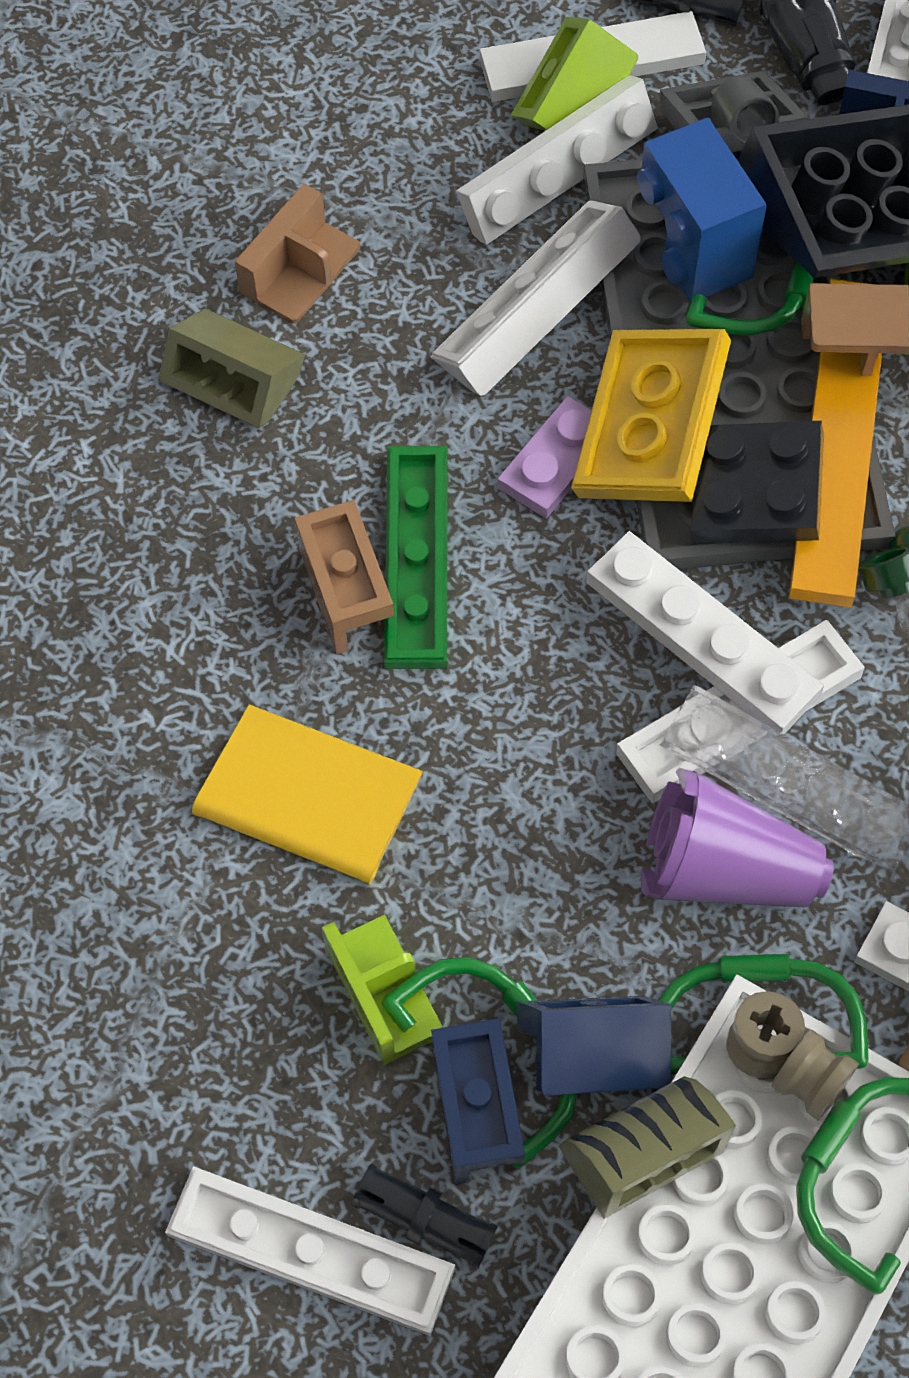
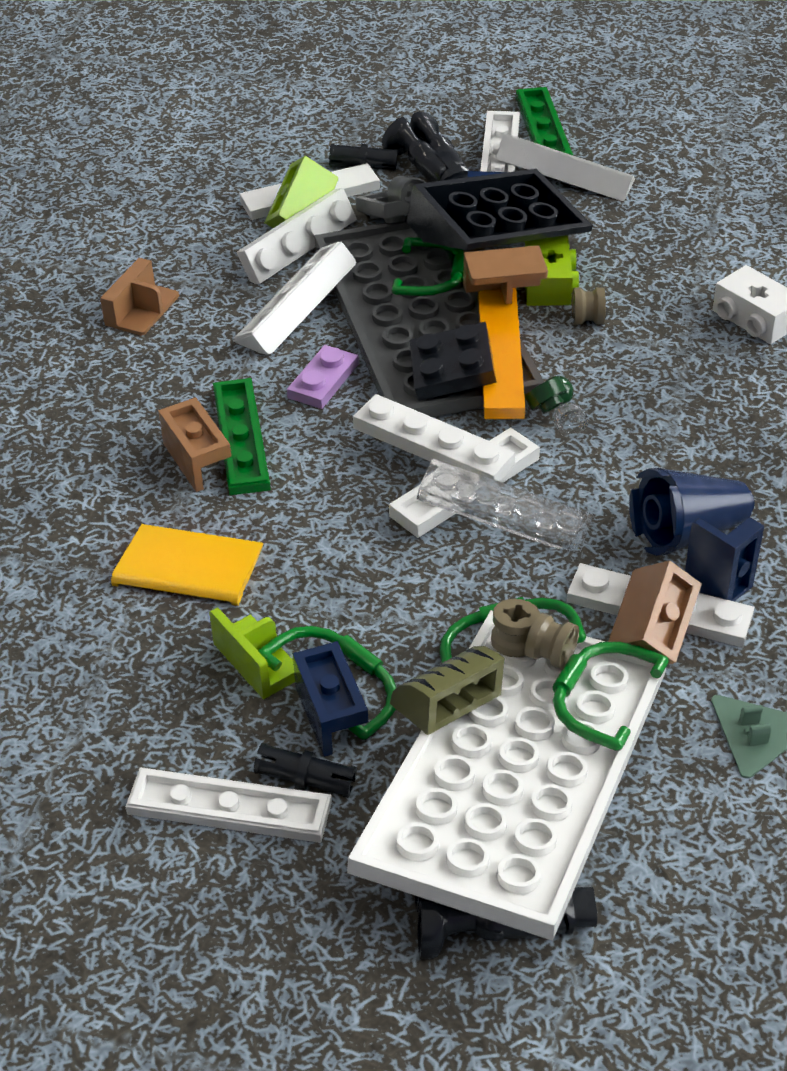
camera: 10 degrees left, 20 degrees down
(229, 366) = (103, 356): olive brick -> none
(599, 1043) = (402, 649): dark blue panel -> none
(652, 415) = (379, 338): yellow tile -> none
(707, 208) = (396, 231): blue slope -> none
(729, 850) = (473, 544): medium lavender cone -> none

